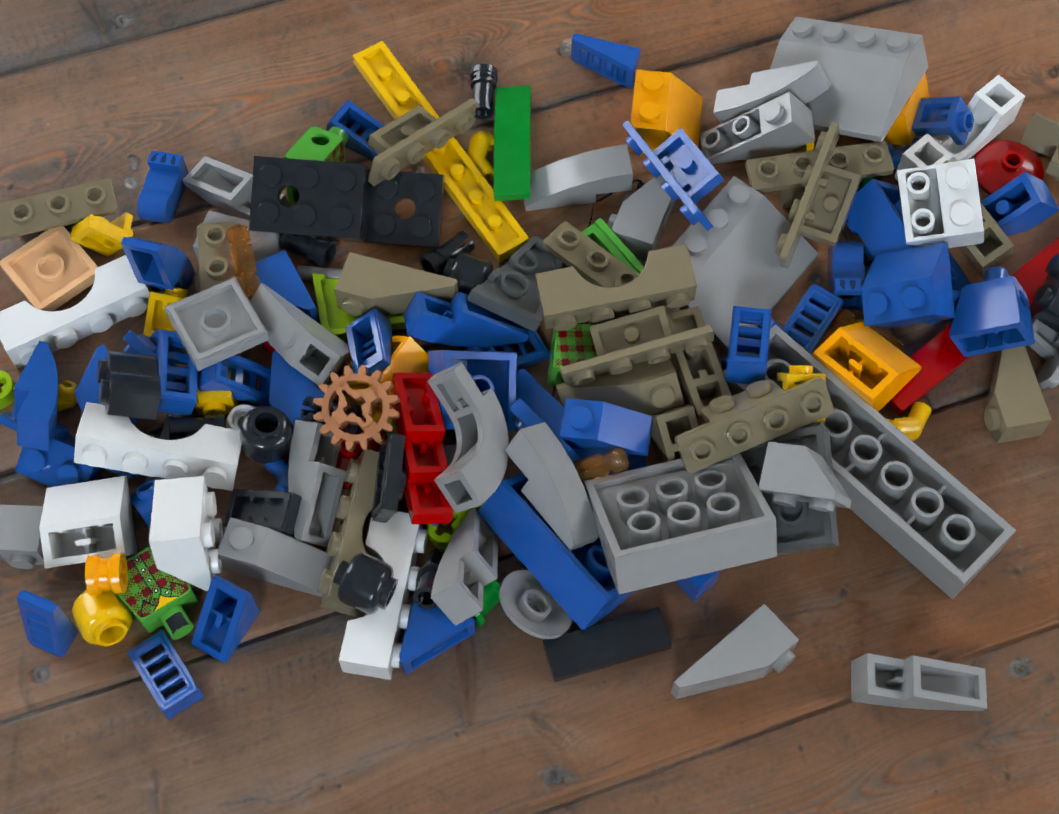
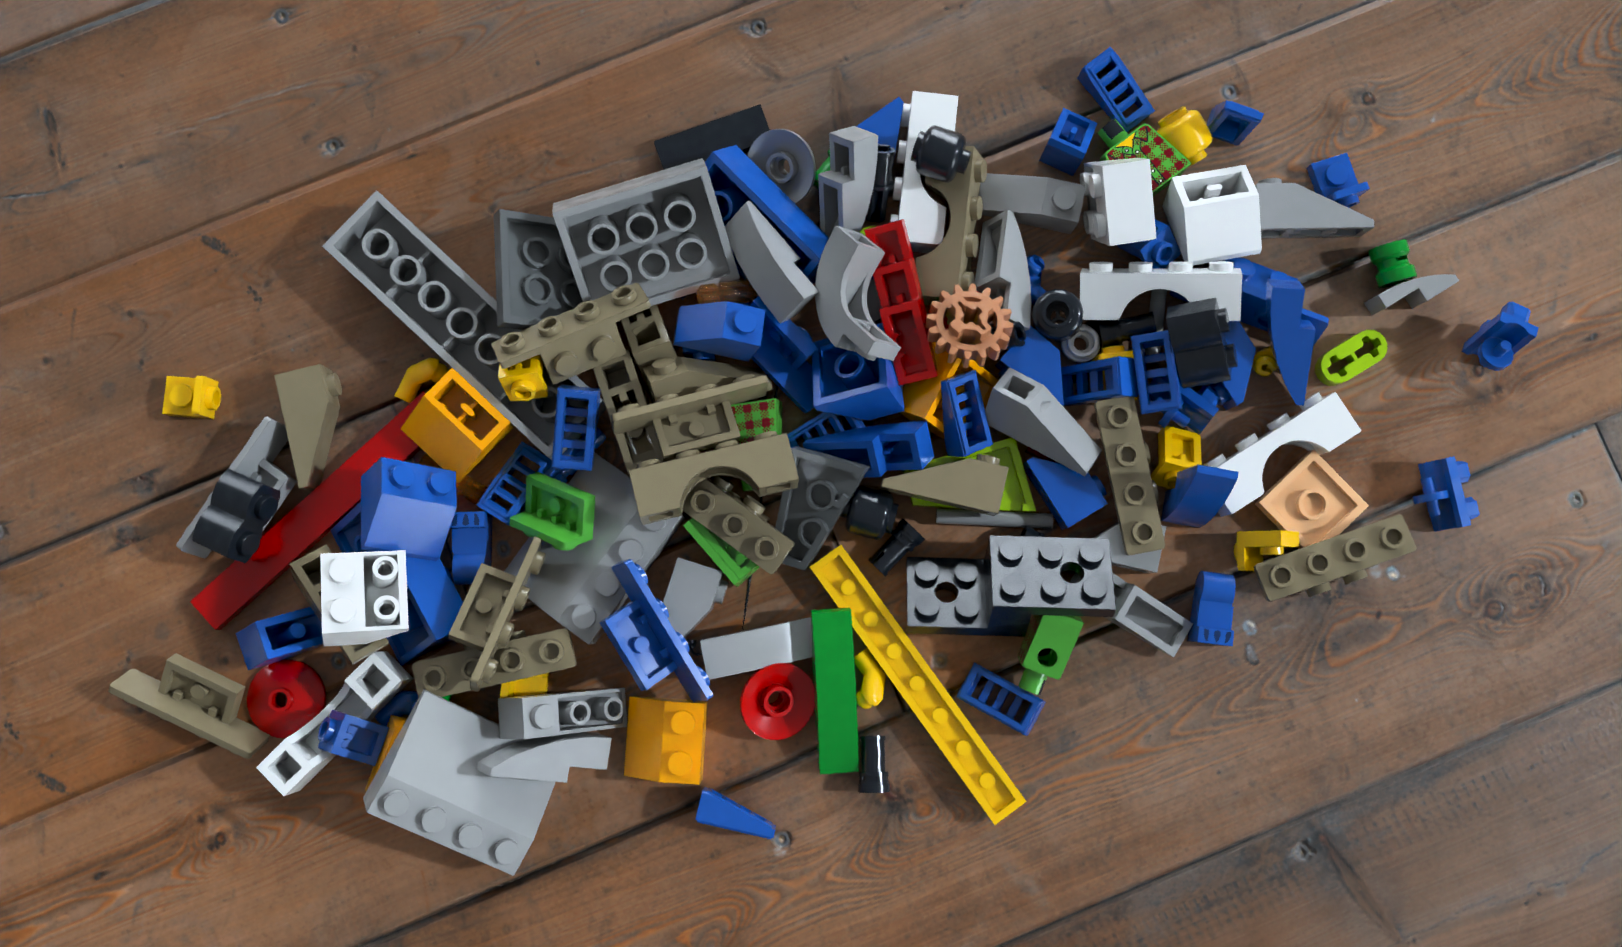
camera: 175 degrees right, 20 degrees up
(106, 574) = (1185, 152): light orange wheel -> none
(216, 323) = (1125, 417): light grey tile -> none
(243, 258) = (1109, 503): clear orange axle -> none
(265, 508) = (1049, 242): black plate -> none
(389, 478) = (929, 259): black plate -> none
(413, 136) = (948, 675): dark tan bracket -> none
(564, 136) = (791, 709): none -> red dish
(742, 656) = (588, 131): light grey slope -> none
(768, 282) = (556, 512): none -> bright green bracket
(801, 475) = (523, 263): light grey slope -> none
(917, 683) = (428, 116): light grey slope -> none
(992, 315) = (320, 486): blue torso -> none

